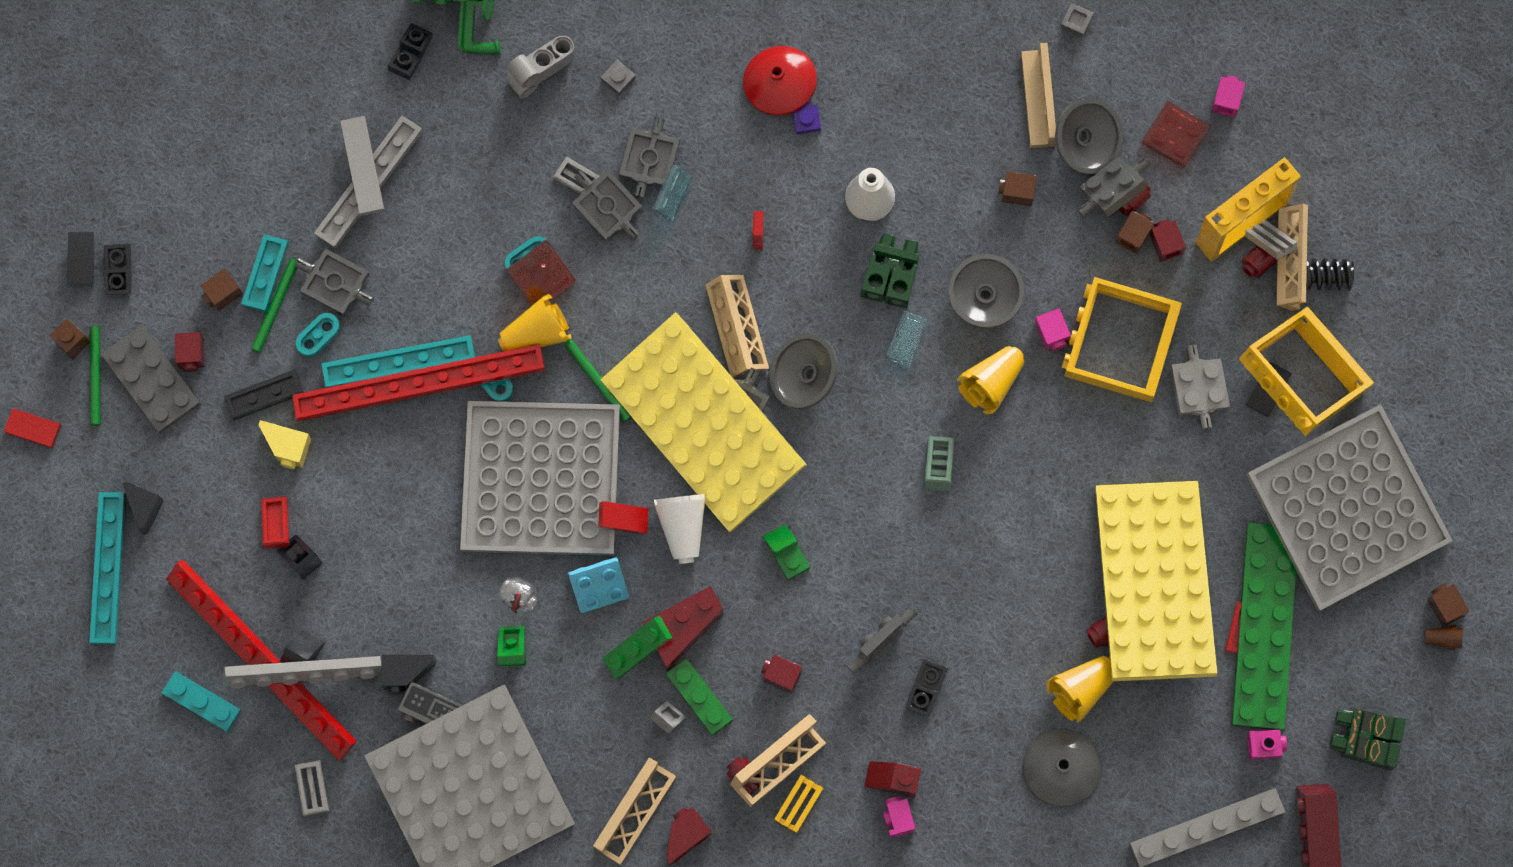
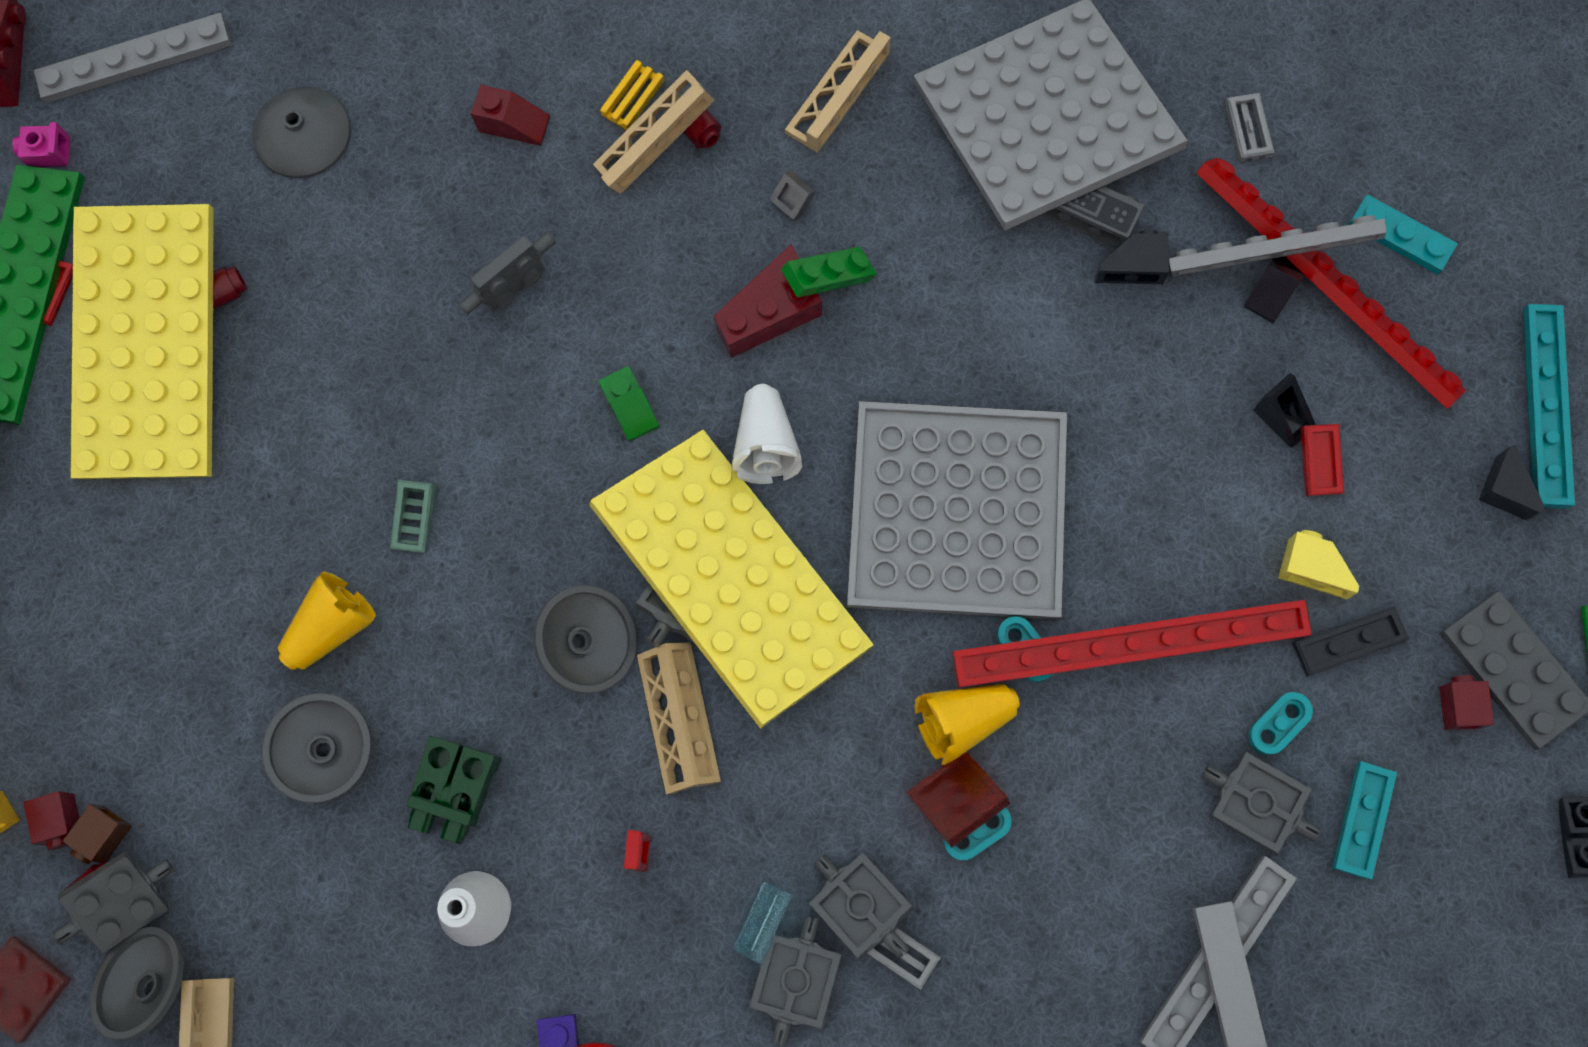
camera: 175 degrees left, 0 degrees up
(220, 290) = (1428, 795): reddish brown brick -> none
(274, 306) = (1345, 772): green bar -> none
(396, 361) = (1161, 679): teal plate -> none
(511, 646) = (995, 284): green slope -> none
(518, 595) = (987, 350): clear head -> none
(595, 377) = (880, 649): green bar -> none
(598, 585) = (881, 366): medium azure bracket -> none
(623, 517) = (845, 447): red tile -> none
(686, 833) = (773, 56): dark red slope -> none
(699, 697) = (749, 221): green plate -> none
(781, 673) = (642, 244): dark red brick -> none
(899, 817) = (508, 67): dark pink brick -> none
(906, 338) = (441, 691): clear light blue tile -> none
(926, 687) = (460, 228): black slope -> none
(1018, 188) = (255, 908): reddish brown brick -> none
(1052, 330) = (233, 692): dark pink brick -> none
(1080, 687) = (256, 215): yellow cone -> none
(1134, 296) = (90, 653): yellow window -> none
(1199, 387) = (47, 608): light grey plate -> none

